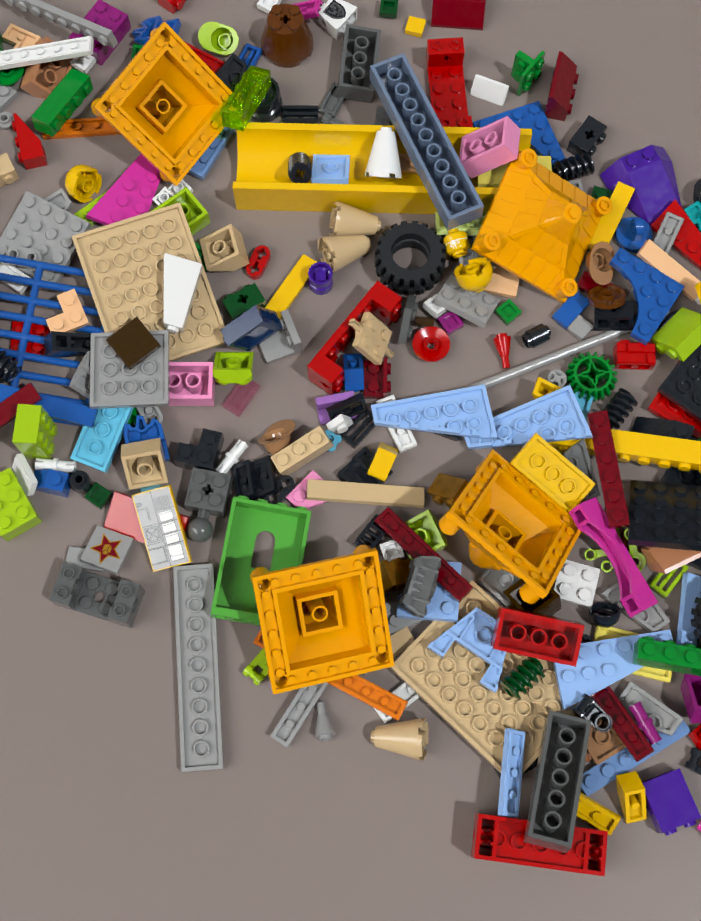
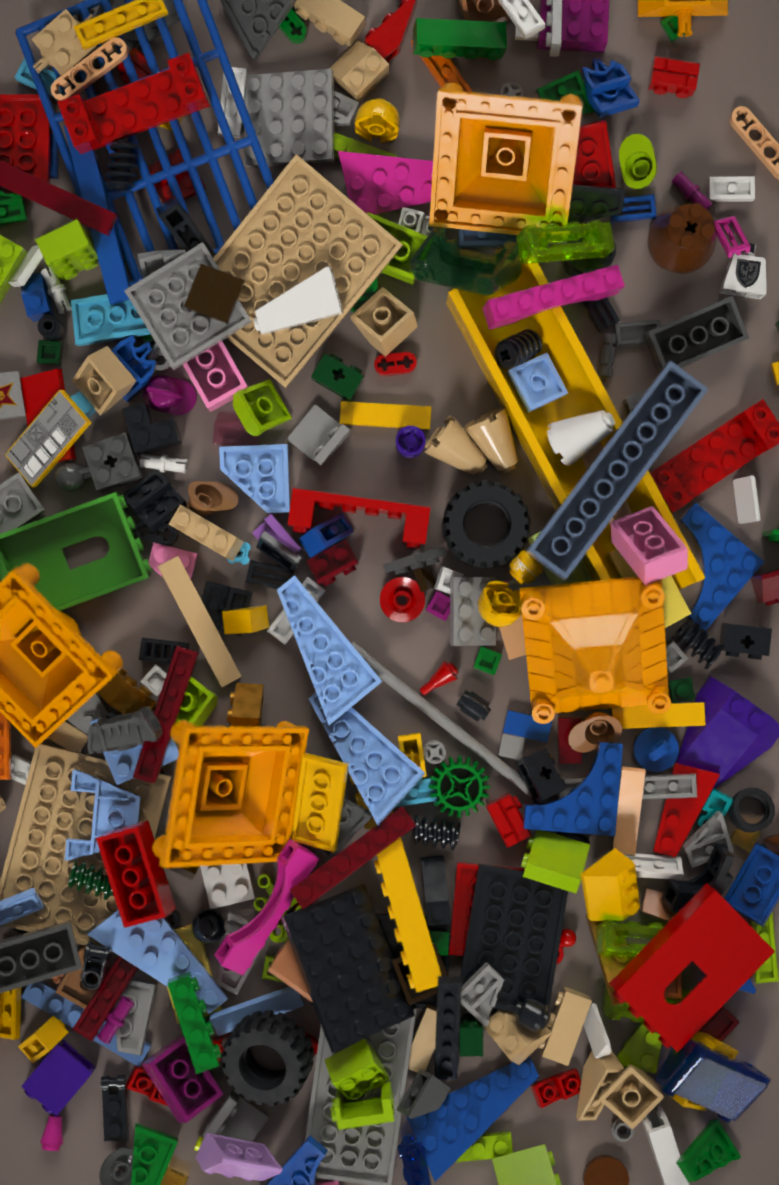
camera: 60 degrees right, 15 degrees up
(25, 253) = (257, 113): light grey plate -> none
(39, 176) = (359, 70): none -> tan slope
(73, 315) = (215, 209): light nougat plate -> none
(184, 427) = (169, 395): none -> magenta piece
(209, 187) = (447, 265): none -> clear green windscreen
(251, 328) = (306, 404): dark blue window -> none
(255, 21) = (690, 190): none -> magenta pin
(272, 141) = (525, 303): none -> dark pink arch
(281, 394) = (260, 473): none -> light blue plate
(340, 424) = (257, 554): white plate -> none
(371, 338) = (365, 536): tan plate -> none
(607, 297) = (546, 764): reddish brown tile -> none

